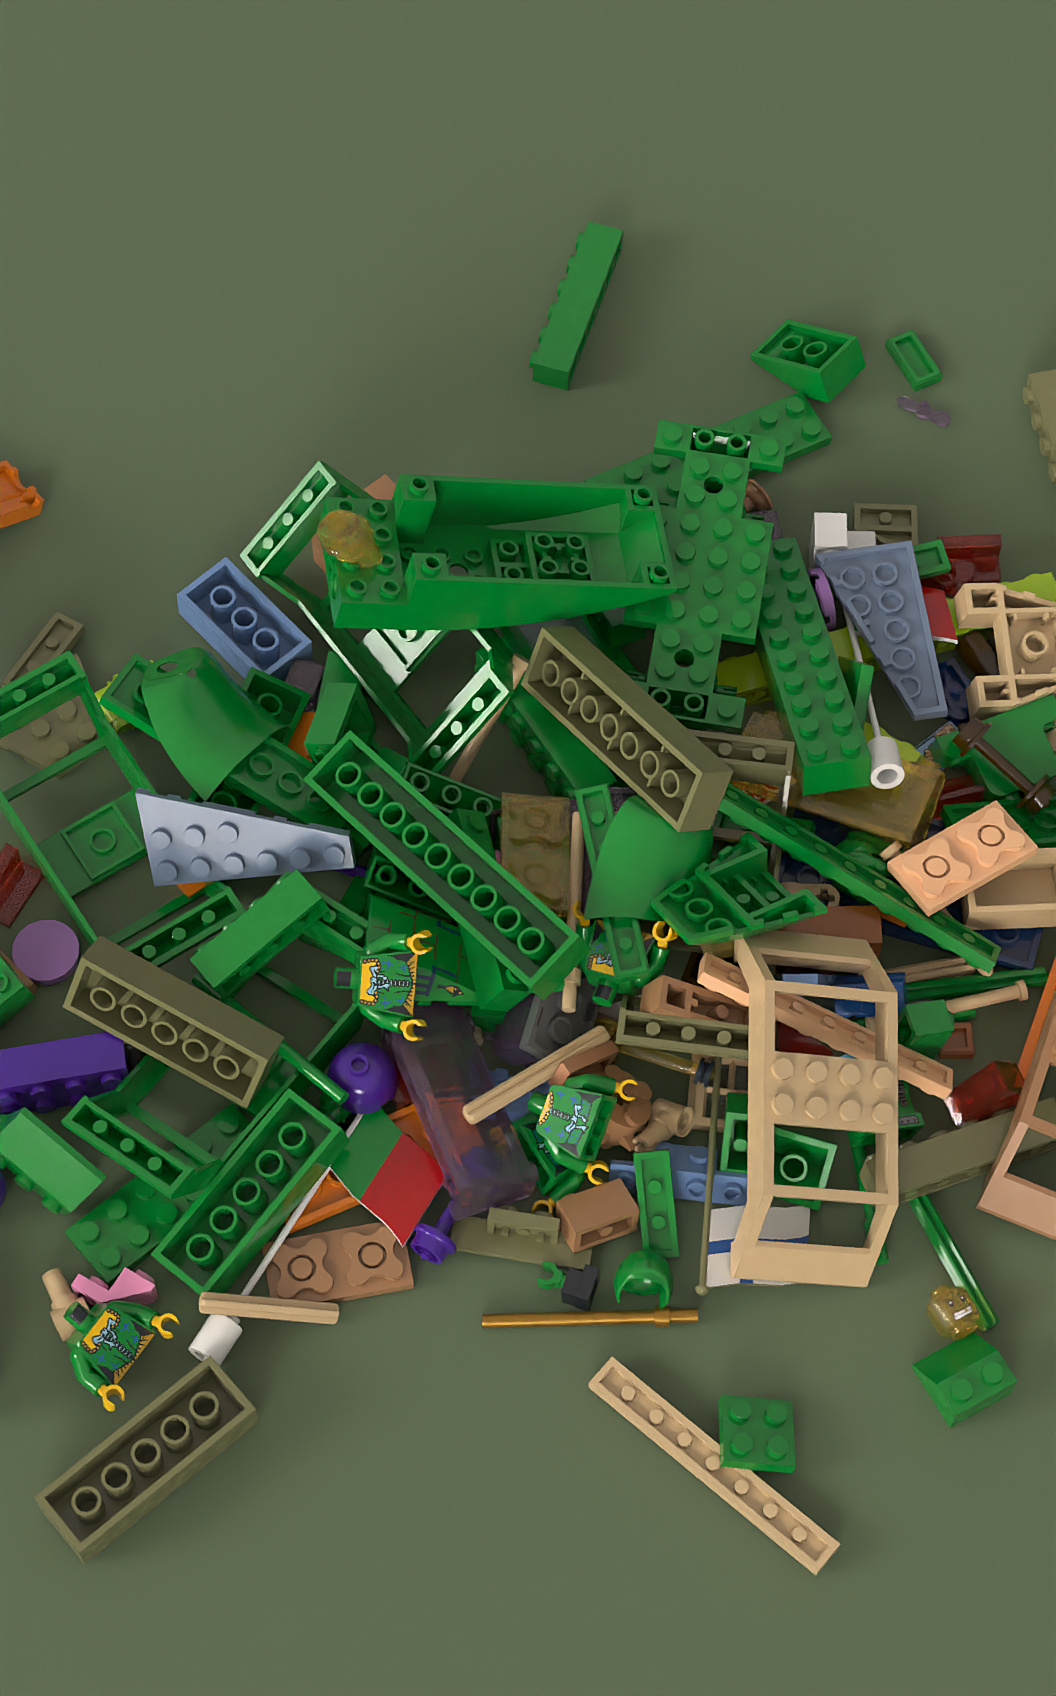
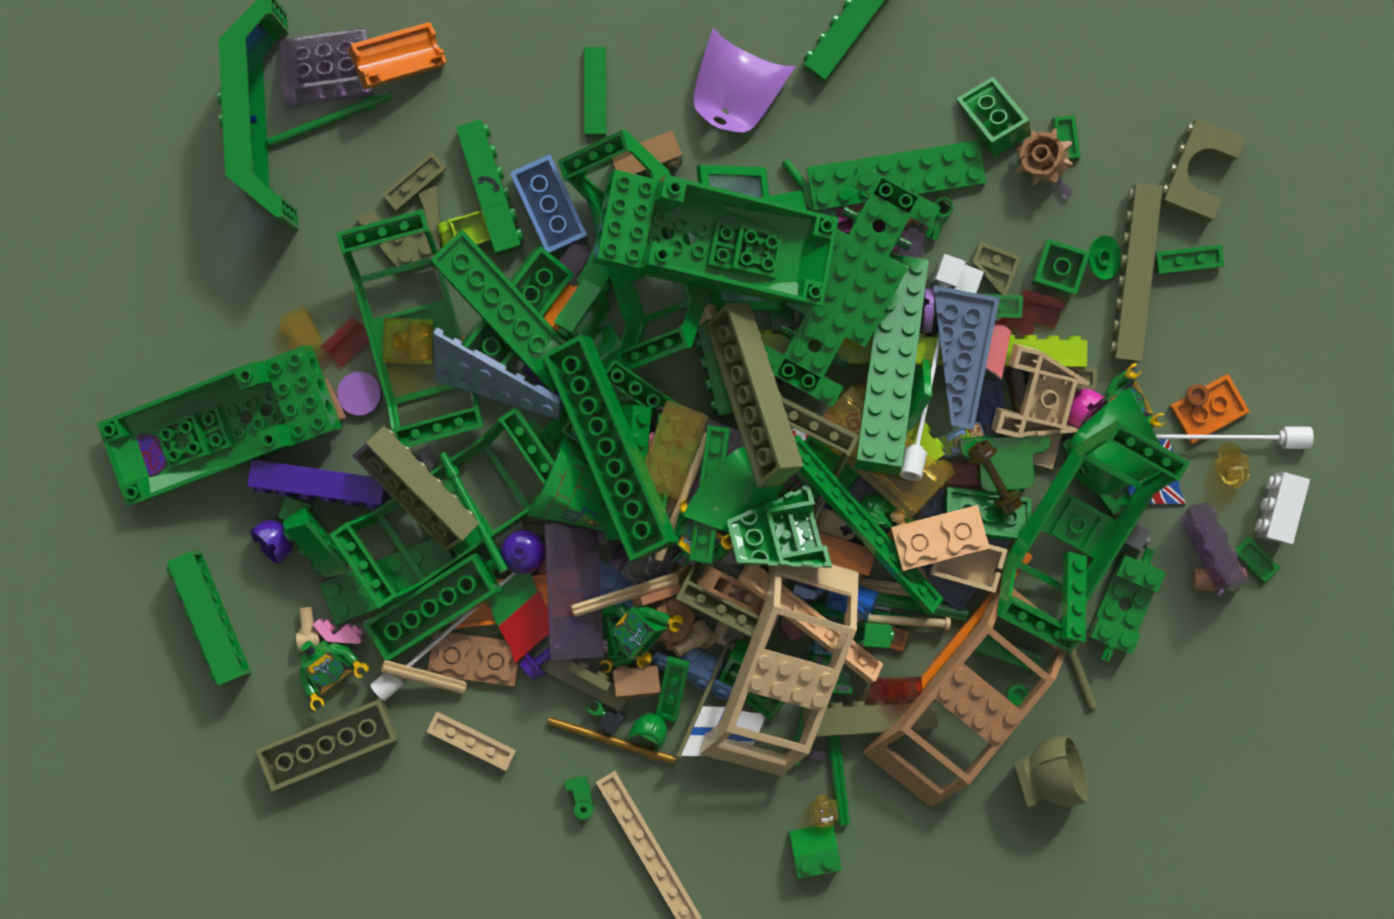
camera: 20 degrees right, 25 degrees up
(97, 849) = (407, 341): none -> clear yellow slope
(135, 609) = (489, 187): none -> green brick
(204, 719) = (497, 294): green piece -> none
(257, 472) = (595, 91): none -> green tile
(259, 933) = (484, 449): green brick -> none
(349, 538) = (615, 217): clear yellow head -> none
(373, 1387) = (471, 741): none -> tan plate
(386, 981) = (548, 517): torso -> none
(450, 418) = (736, 82): none -> medium lavender piece
(575, 1413) = (582, 794): none -> green leg
(756, 1434) = (681, 844): green plate -> none
(788, 491) = (939, 220): none -> green pin
(896, 378) = (1045, 146): none -> medium nougat brick
(906, 1238) = (816, 755): none -> clear purple tile
(975, 499) = (1060, 267): none -> green brick
(1027, 474) = (1104, 257): none -> green dish

